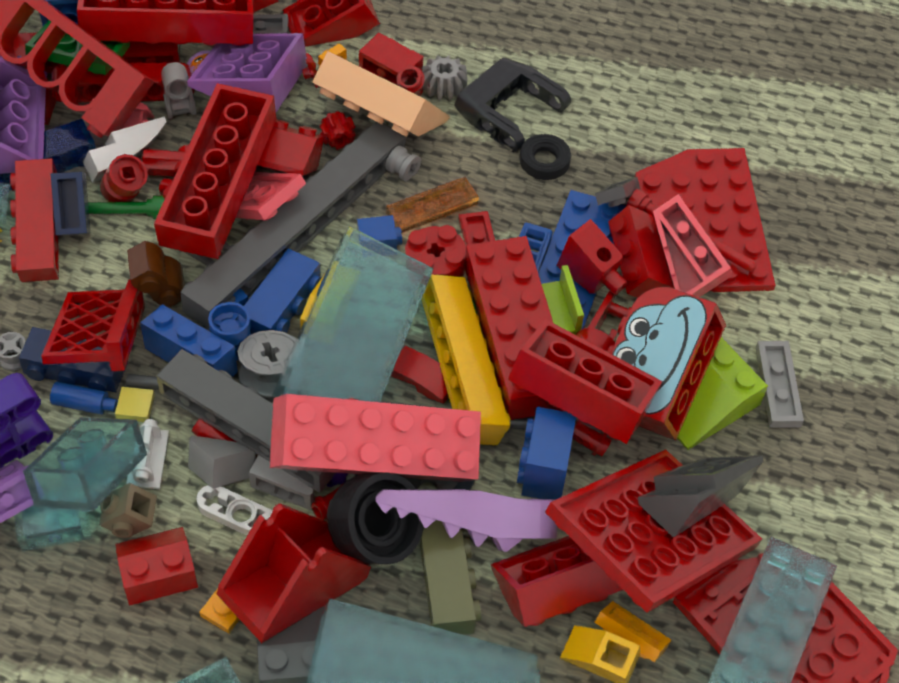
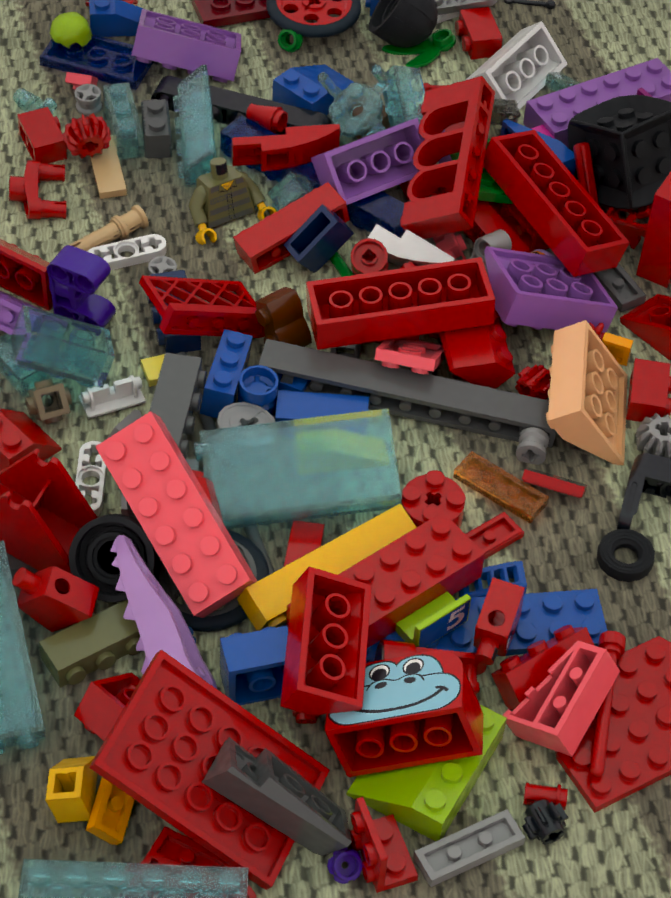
camera: 65 degrees right, 5 degrees down
(81, 398) = (143, 332): blue cylinder -> none
(381, 229) = (431, 454): blue brick -> none
(395, 591) = (55, 597): none -> red torso
(411, 79) = (625, 409): red cone -> none
(449, 166) = (554, 482): none -> red tile
(617, 193) = (600, 617): dark grey plate -> none
(755, 307) = (539, 792): none -> red pin
(765, 477) = (353, 869): none -> dark purple plate
(774, 443) = (382, 848): none -> red bracket
(779, 321) = (545, 821): none -> black gear

